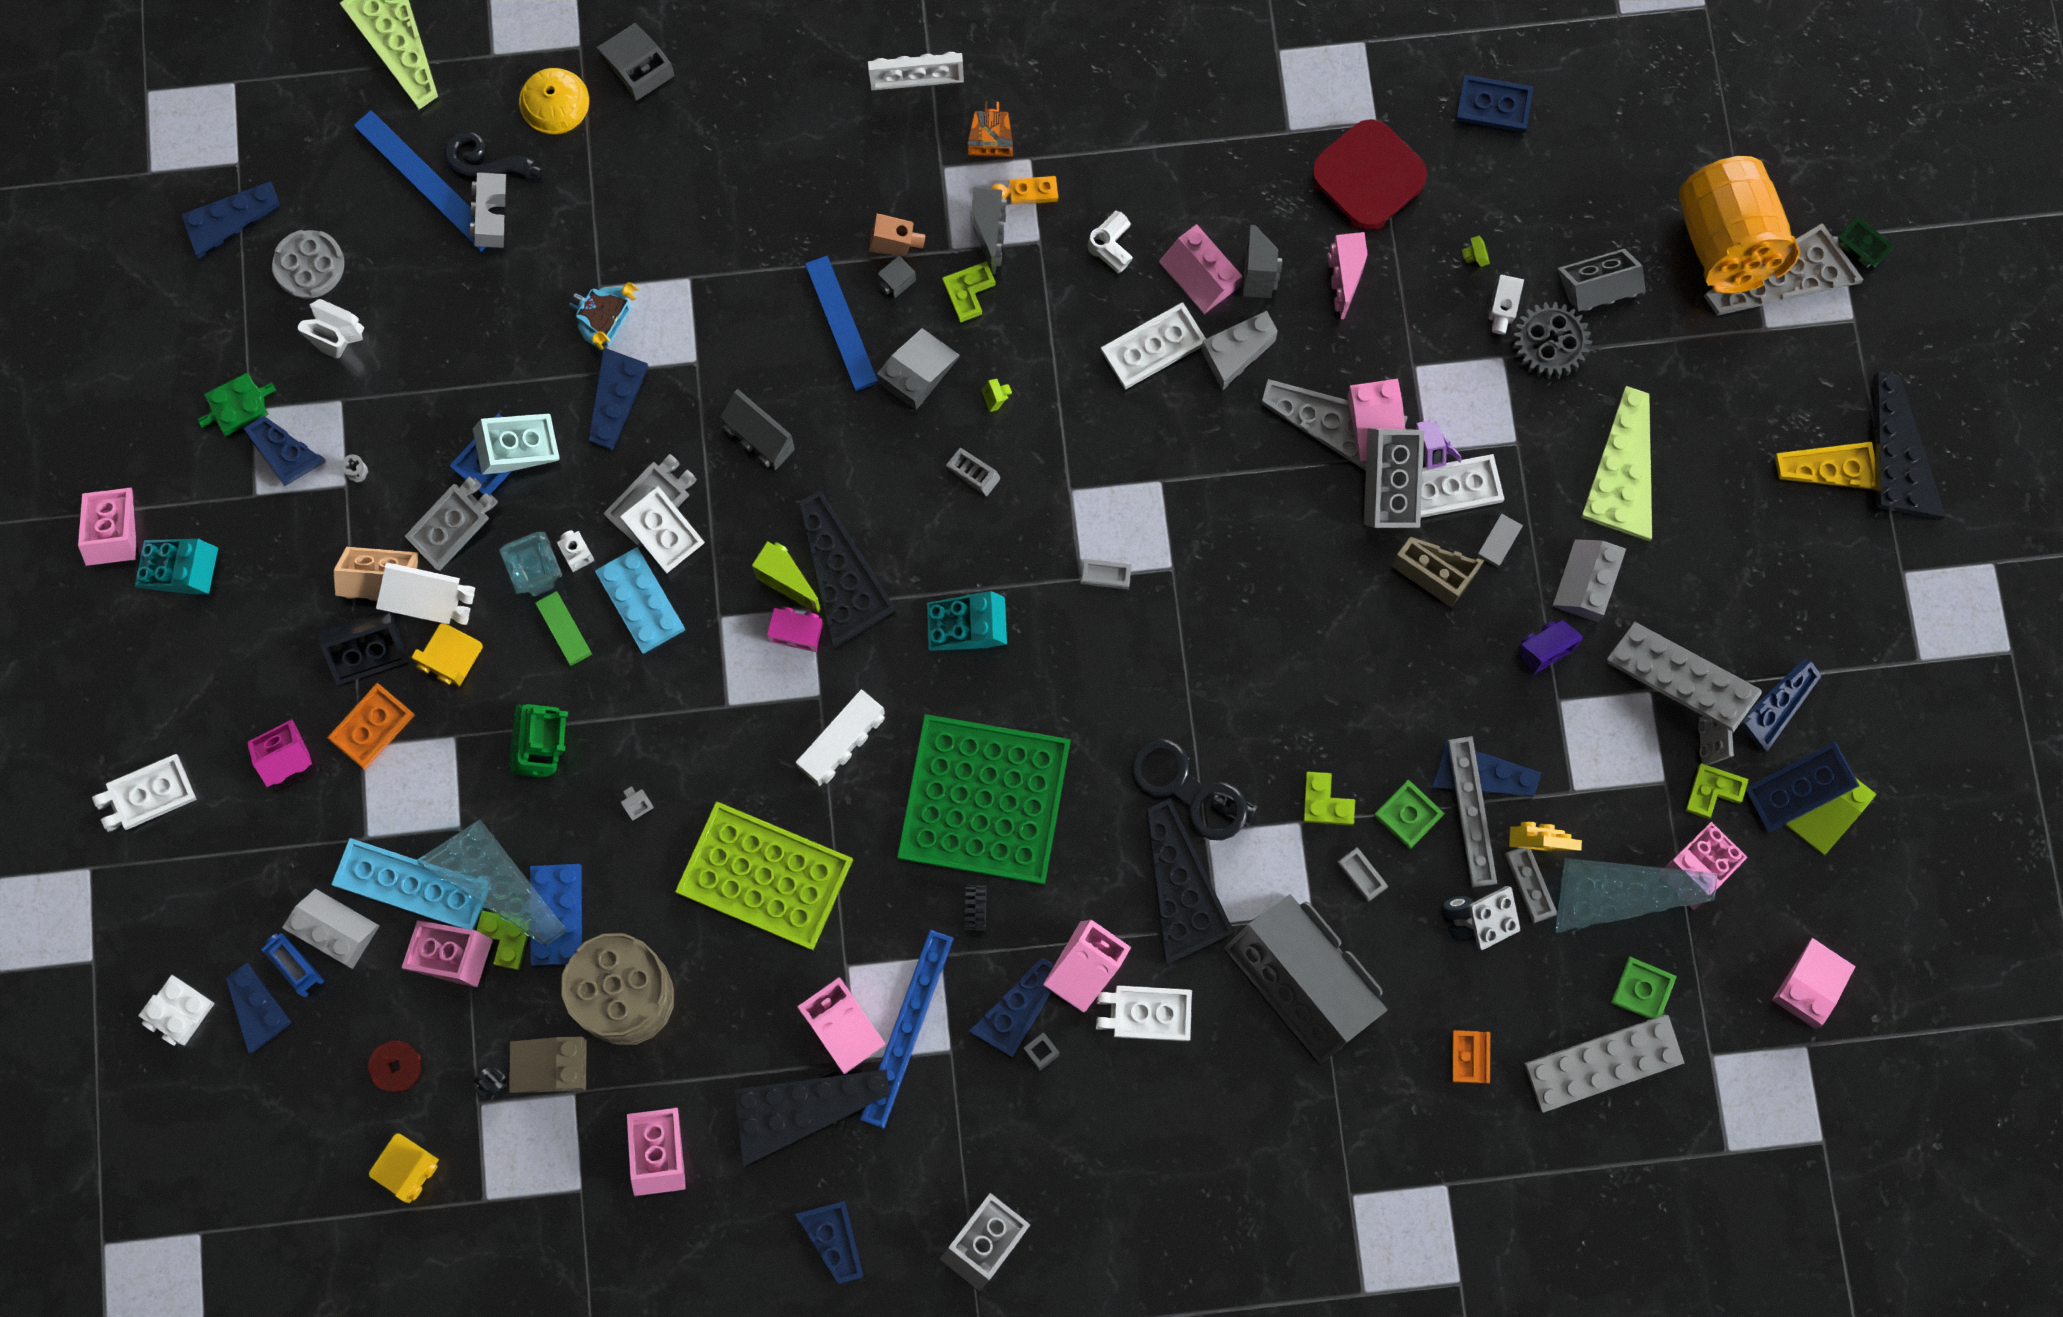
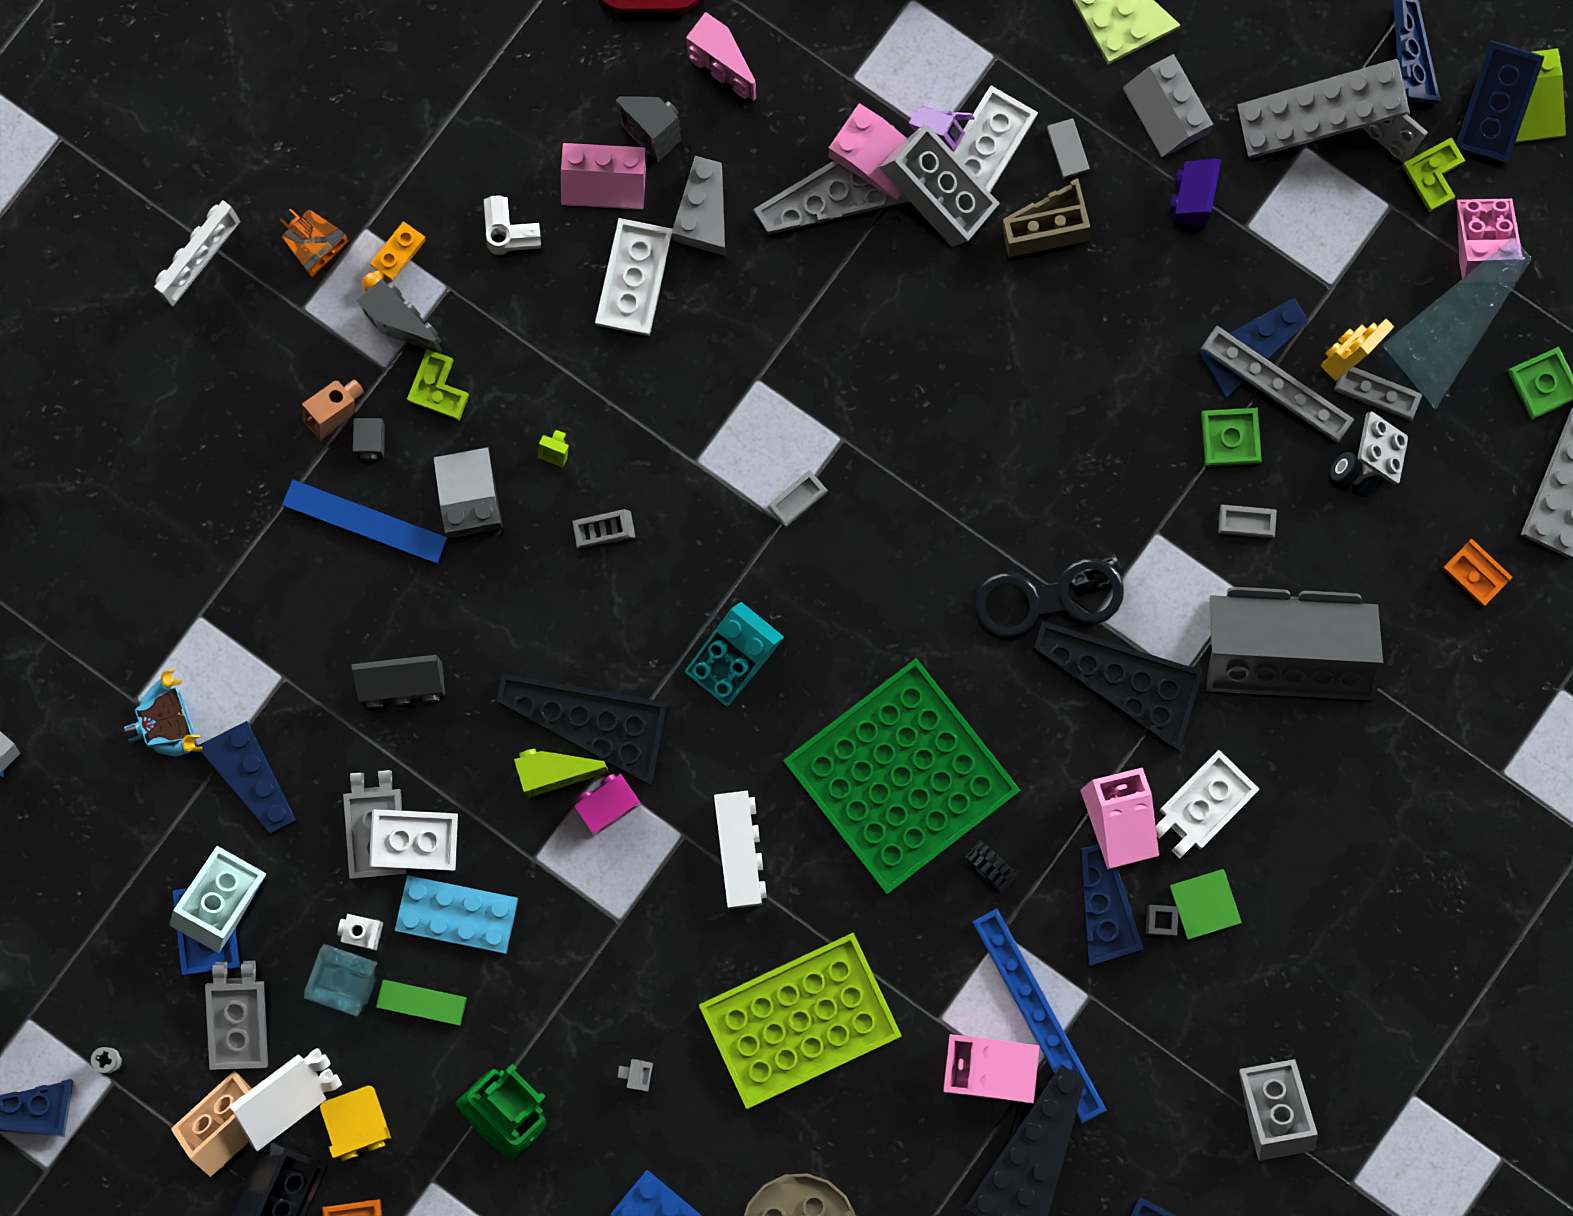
camera: 45 degrees left, 5 degrees up
(1080, 1072) = (1205, 904): none -> bright green tile
(1322, 808) = (1156, 502): lime plate -> none

